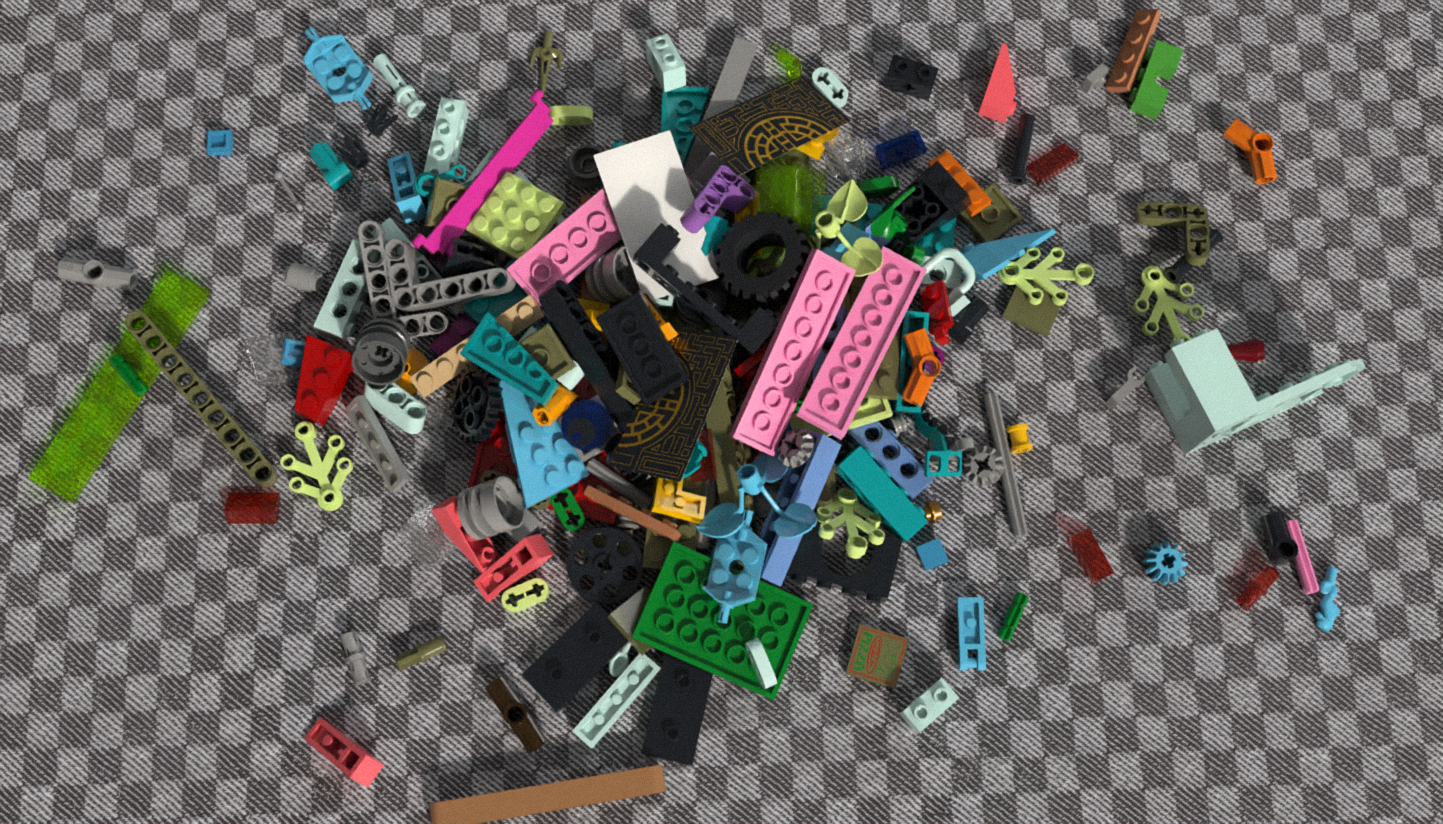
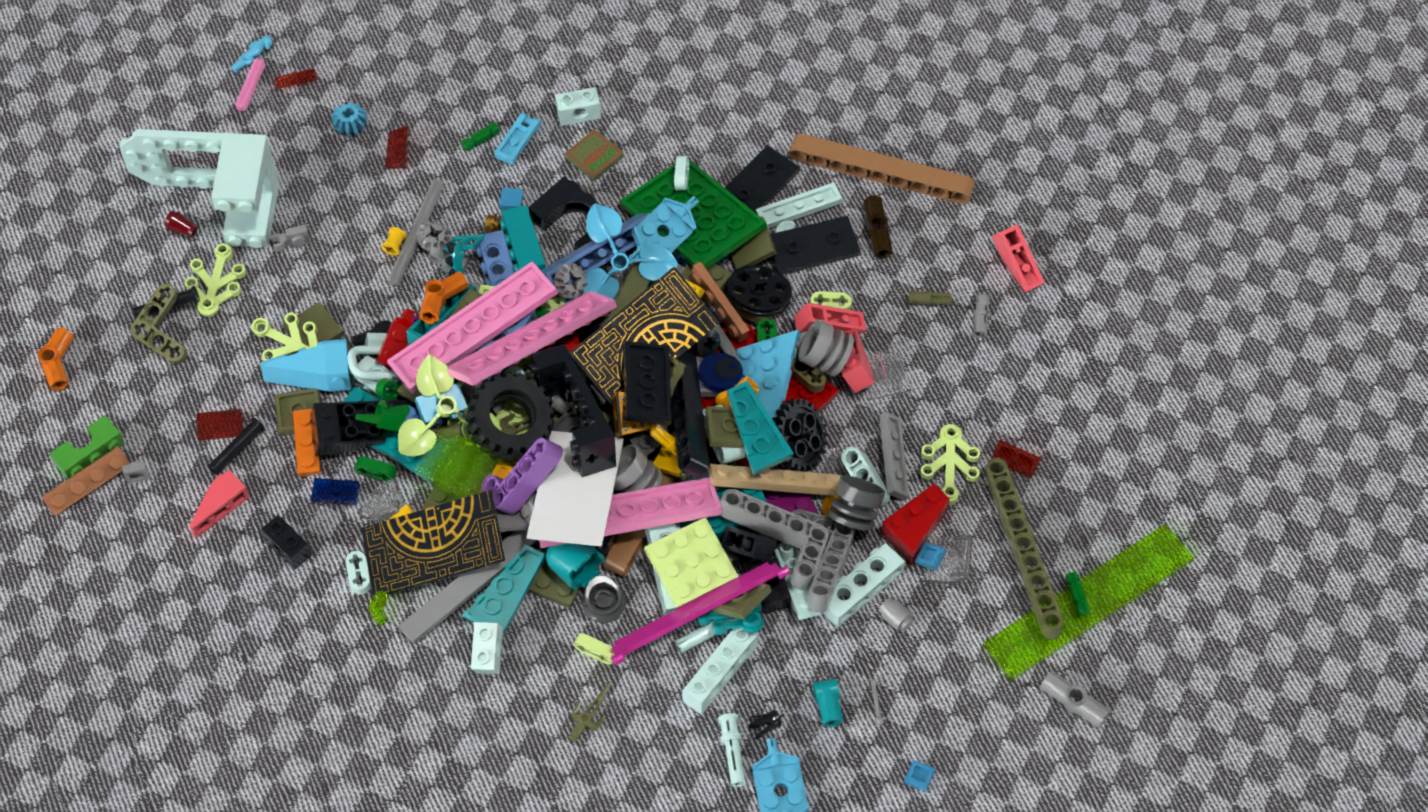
camera: 150 degrees left, 15 degrees down
(359, 156) = (801, 701): black piece -> none
(403, 175) = (769, 653): medium azure slope -> none
(847, 501) = (558, 230): yellowish green plant -> none
(1277, 536) = (257, 99): black piece -> none

